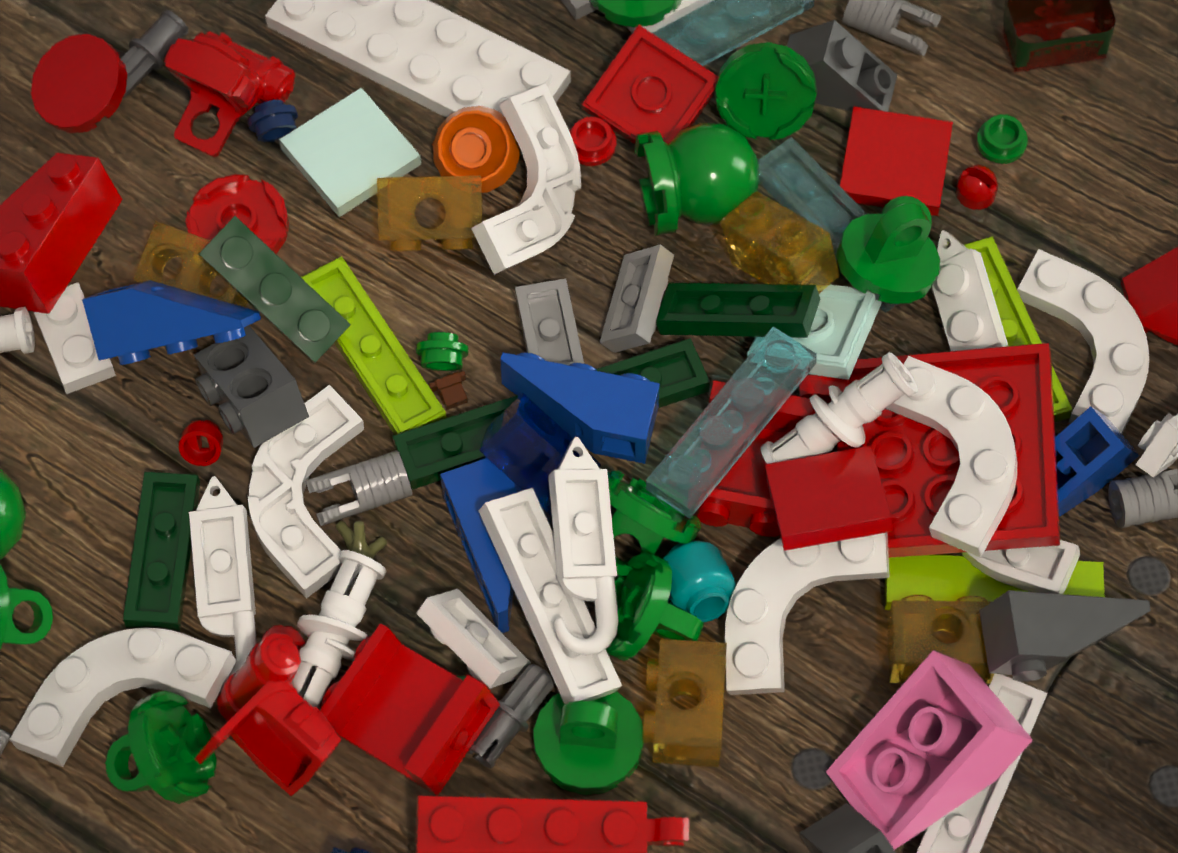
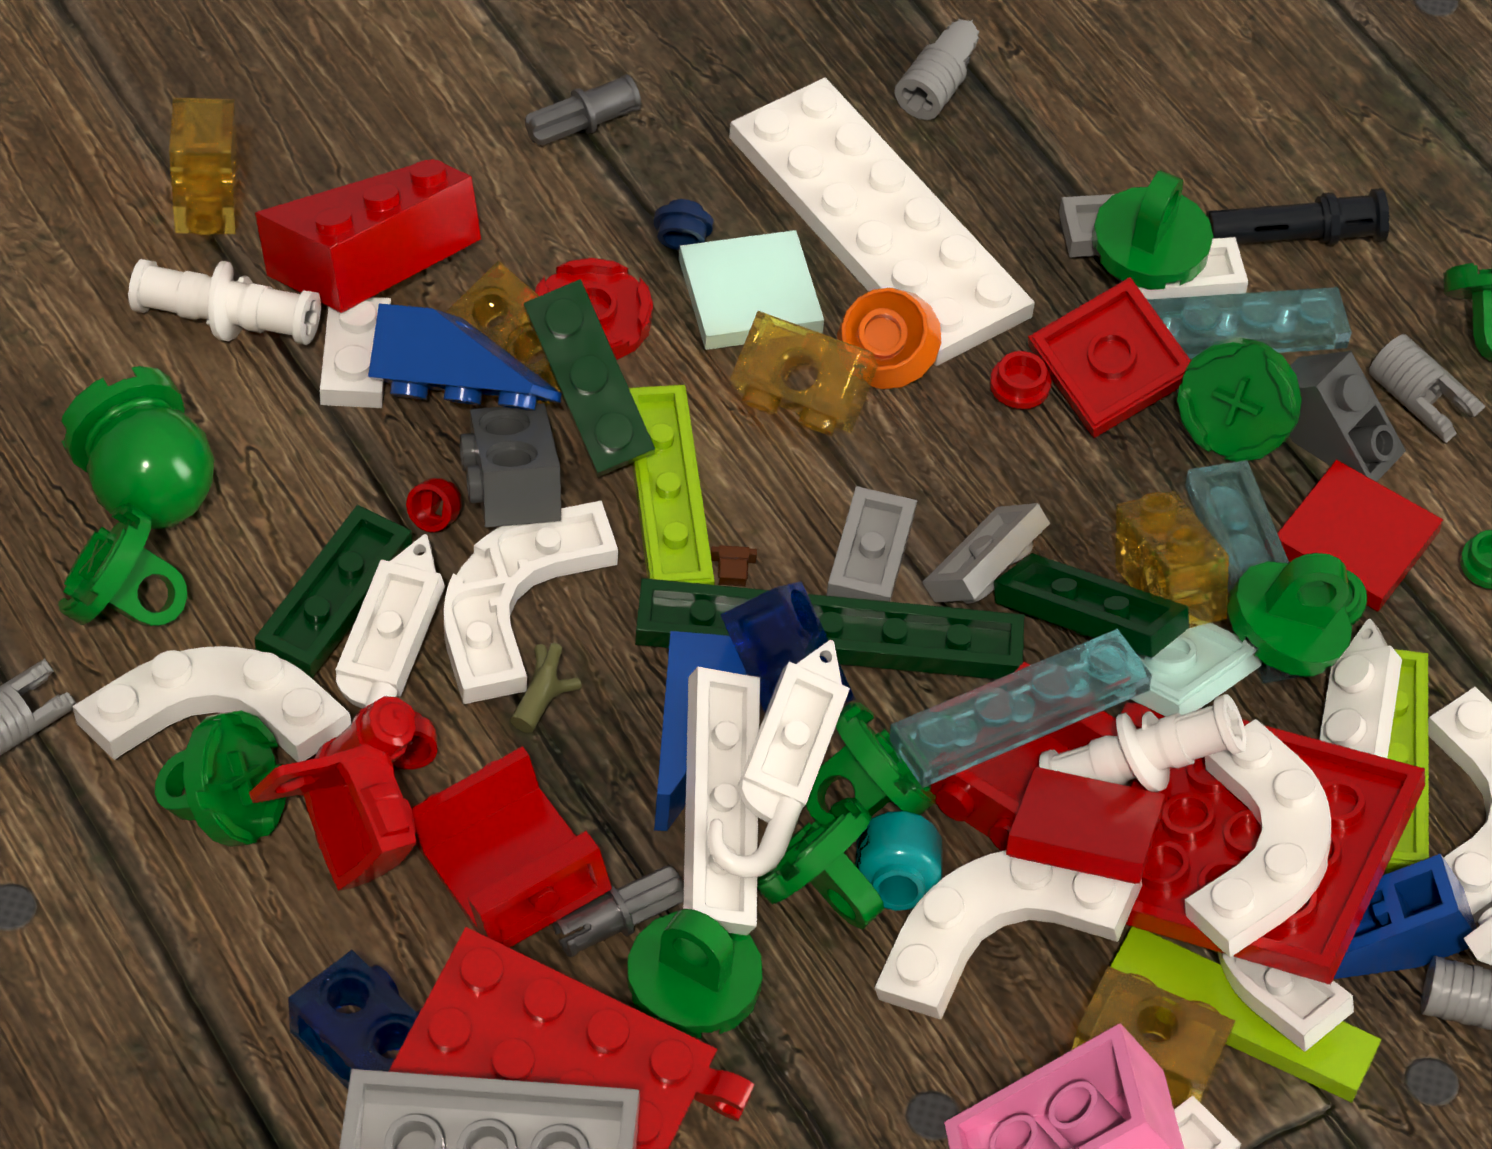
camera: 20 degrees right, 10 degrees down
(78, 83) = (496, 109): red tile -> none
(226, 78) = (650, 160): red piece -> none
(335, 625) = (476, 736): white piece -> none
(373, 484) = (596, 616): light grey hinge -> none
(442, 352) = (741, 520): green plate -> none
(473, 638) = (619, 813): white plate -> none
(551, 183) = (952, 404): white plate -> none
(602, 409) = (878, 635): blue slope -> none
(690, 734) = (815, 1014): clear yellow brick -> none
(696, 175) = (1116, 448): green tile -> none
(972, 187) = (1431, 600): red hinge -> none
(1040, 630) = (1267, 1069): dark grey slope -> none

